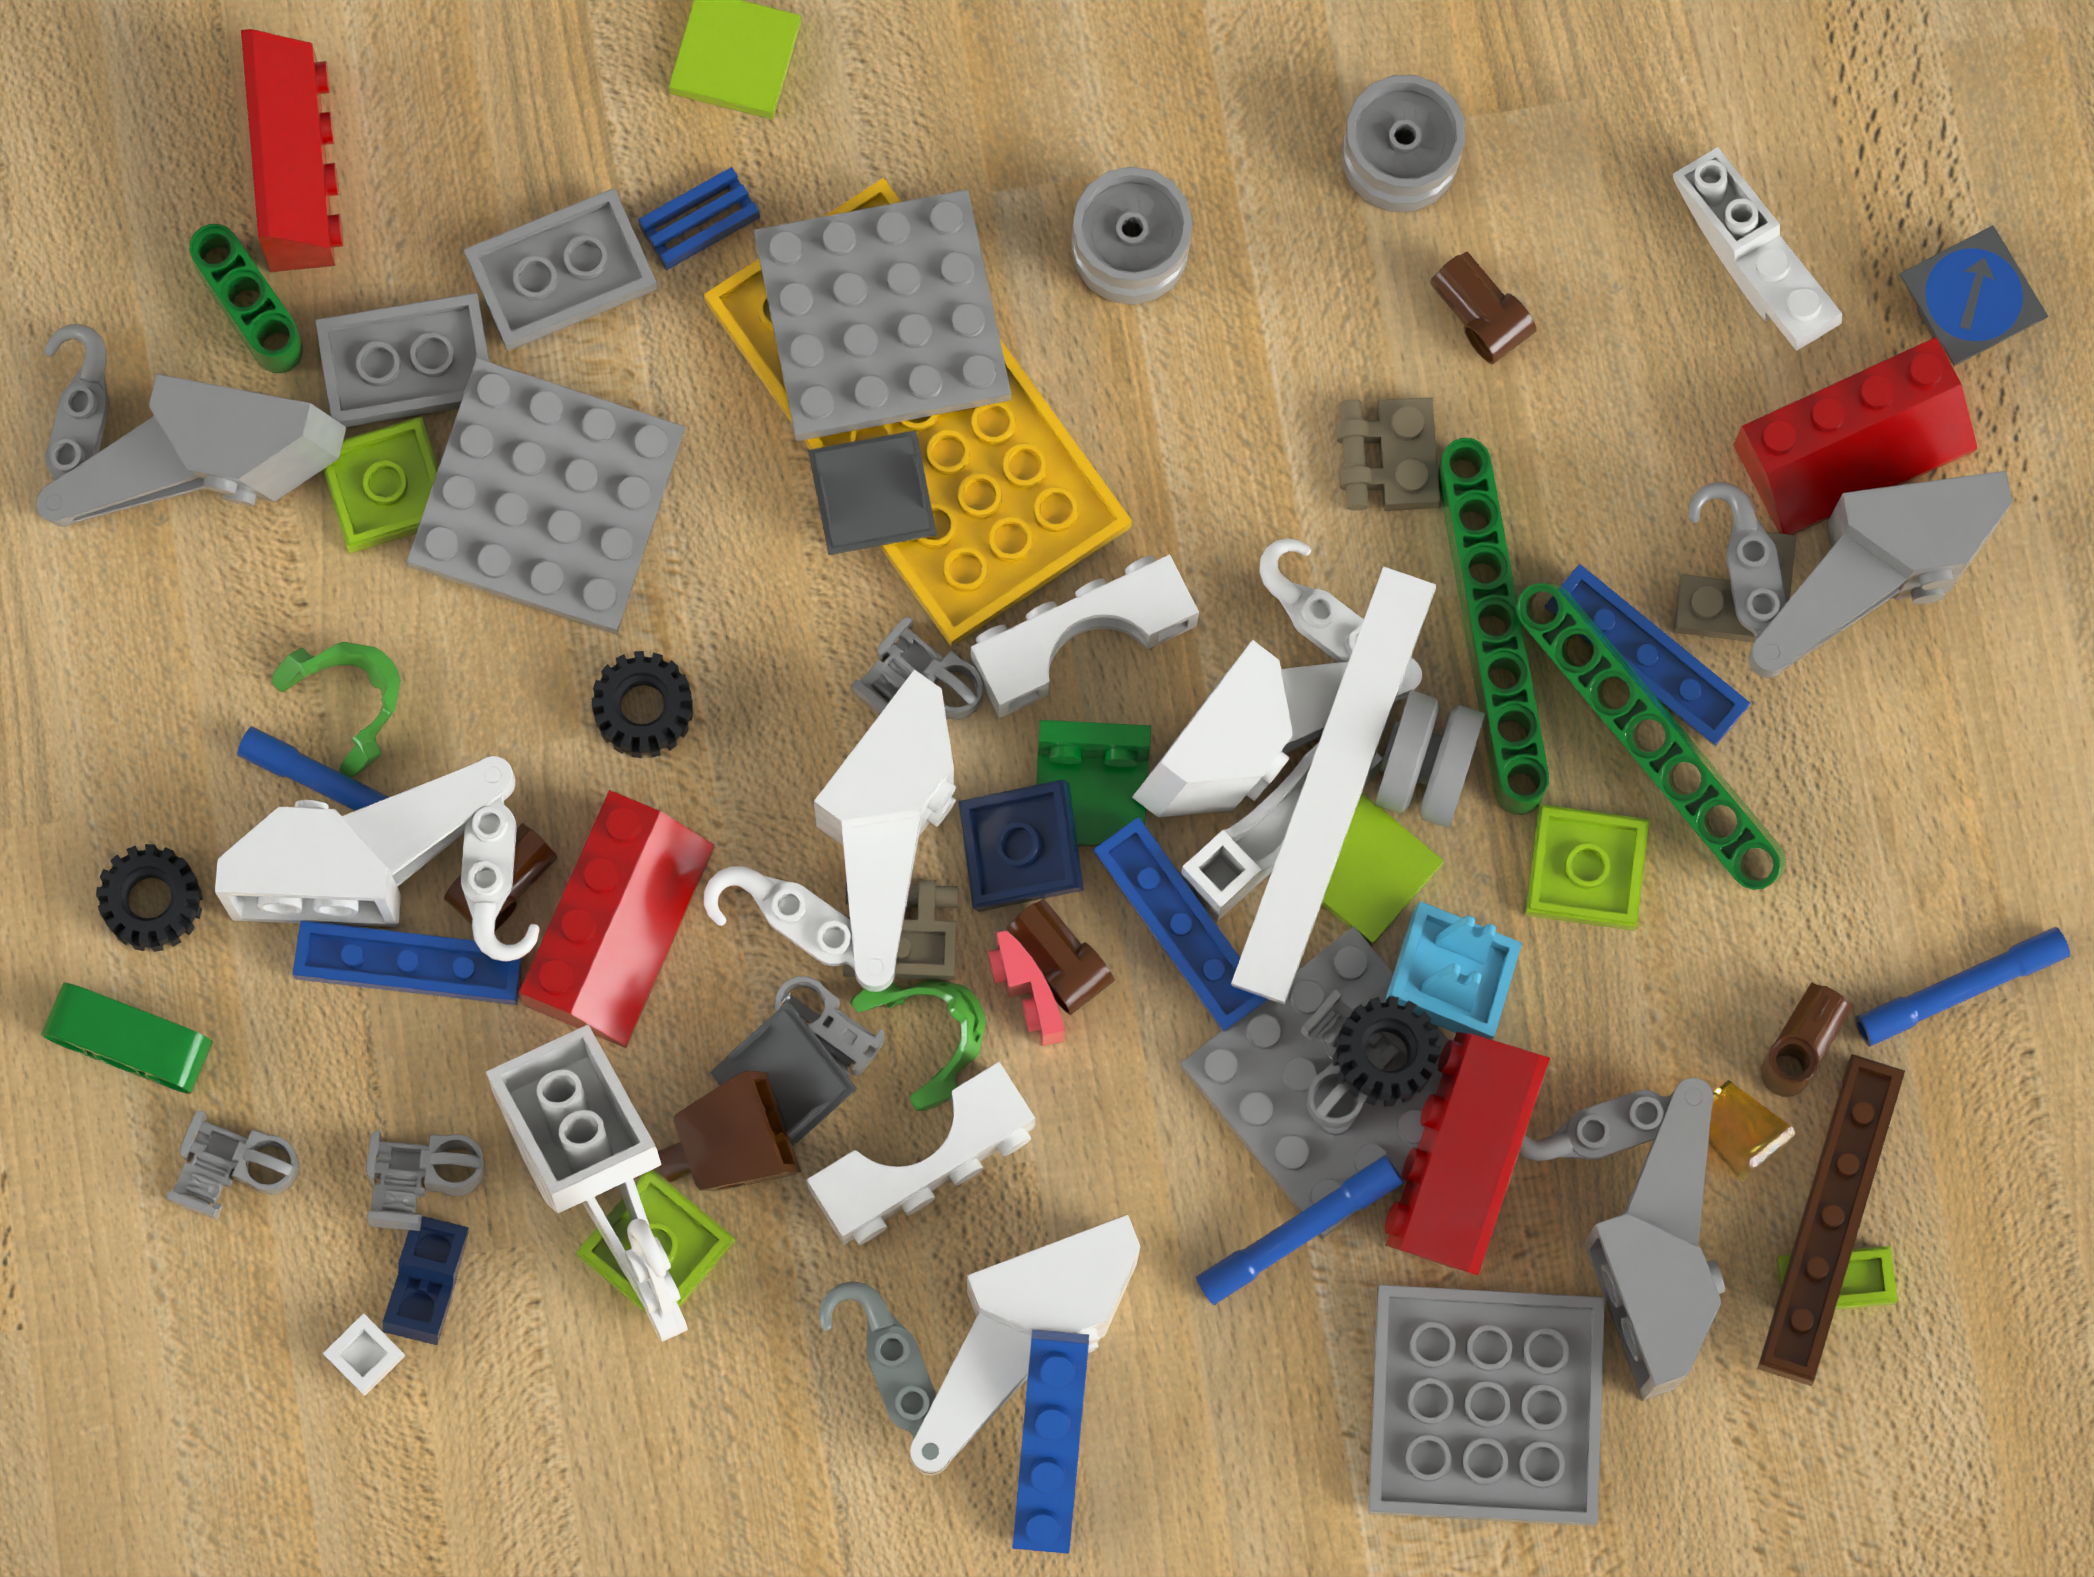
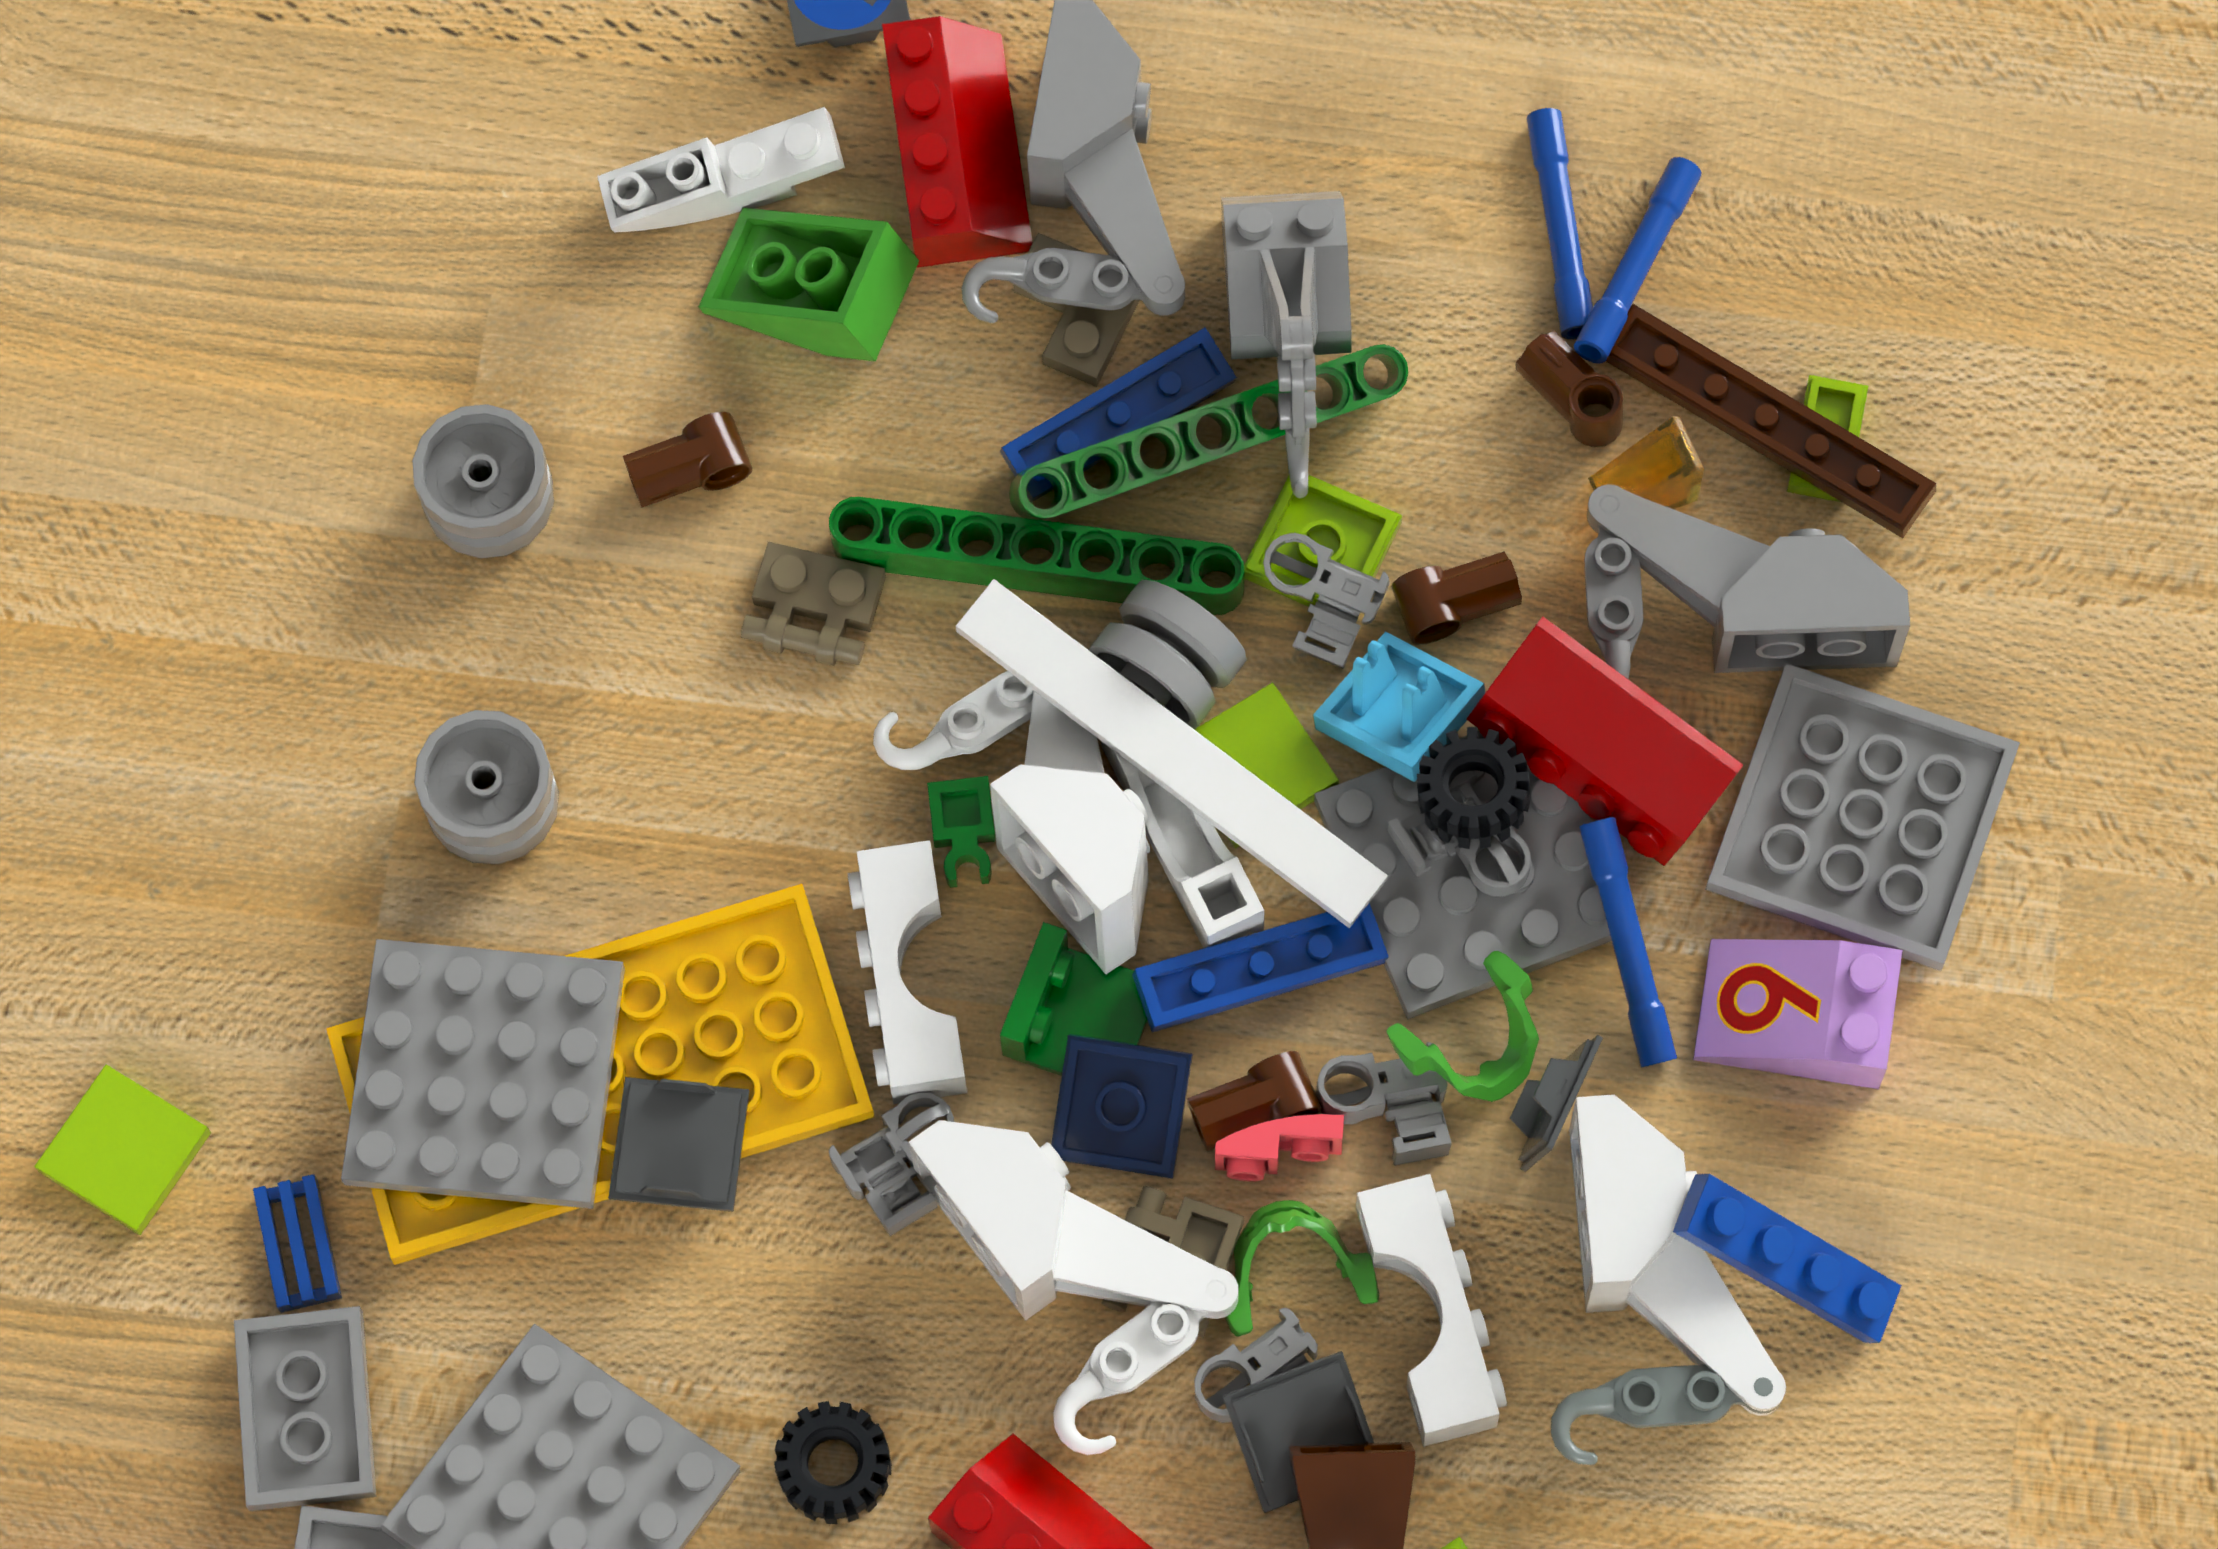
camera: 65 degrees left, 5 degrees down
(1110, 1083) = (1407, 1102): none -> light grey piece
(1134, 1199) = (1547, 1102): none -> dark grey piece
(1149, 1155) = (1495, 1077): none -> bright green helmet
(1227, 636) = (962, 820): none -> green plate
(1291, 1397) = (1800, 1008): none -> lavender slope
(1539, 893) = (1341, 598): none -> light grey piece
(1565, 980) = (1440, 601): none -> reddish brown piece
(1683, 358) = (812, 280): none -> bright green slope
(1799, 761) = (1288, 298): none -> light grey slope
(1885, 1051) = (1611, 311): none -> blue piece

